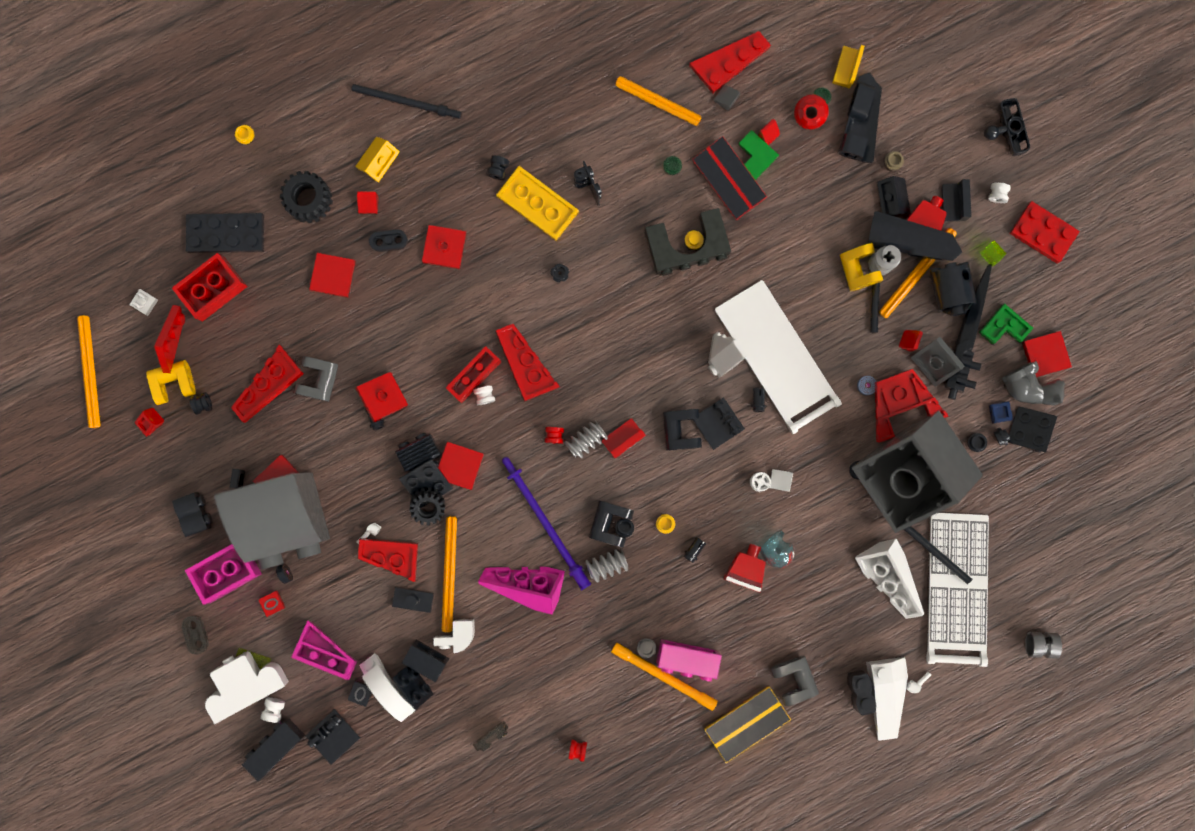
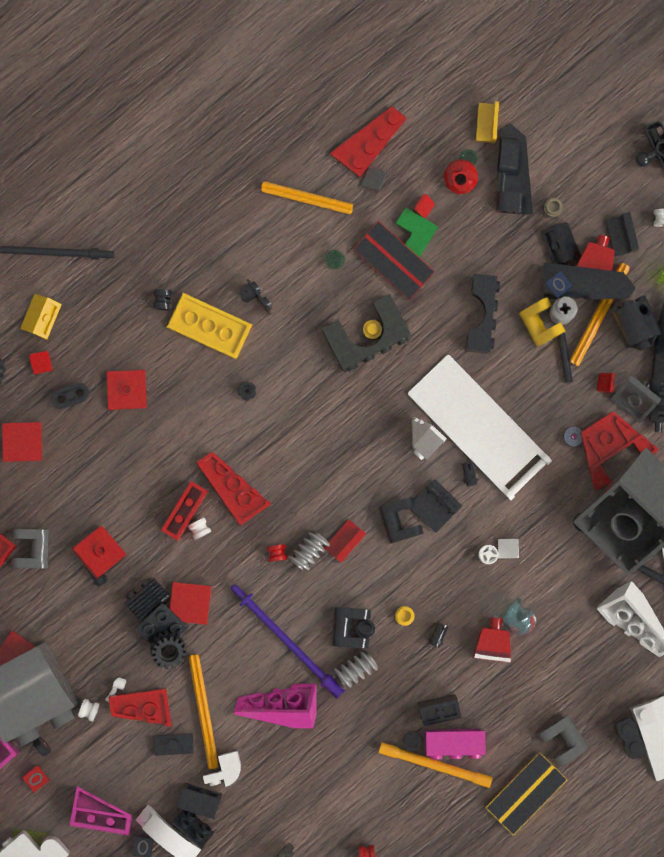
camera: 15 degrees left, 0 degrees up
(337, 548) = (88, 710): none -> white wheel
(680, 623) = (439, 710): none -> black hinge
(810, 225) = (484, 289): none -> black arch
(886, 233) = (559, 284): none -> dark blue tile

